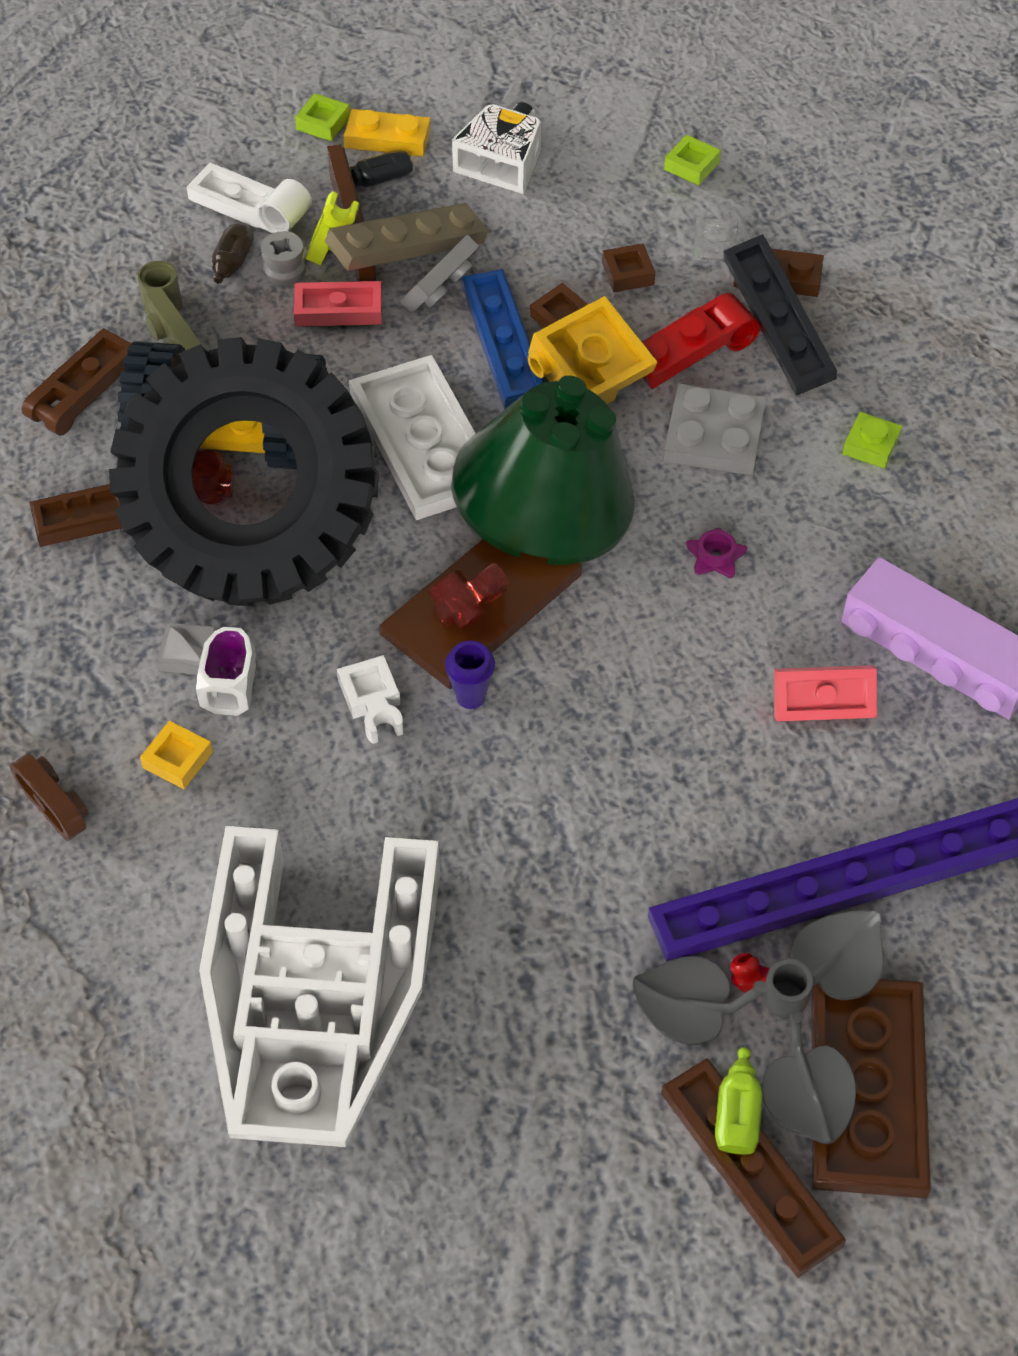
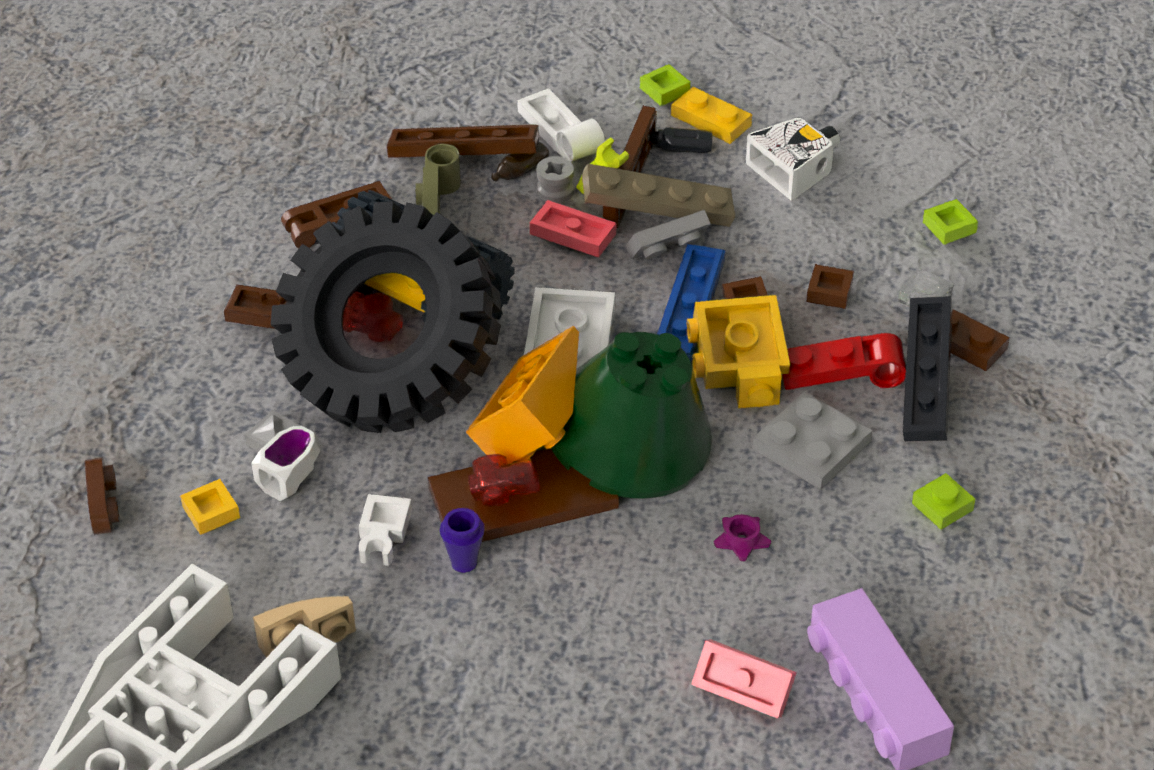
camera: 30 degrees right, 10 degrees down
(171, 245) = (468, 140): none -> reddish brown tile
(353, 845) = (325, 615): none -> tan slope
(449, 499) = (530, 401): none -> light orange slope
(635, 395) = (758, 386): none -> yellow plate

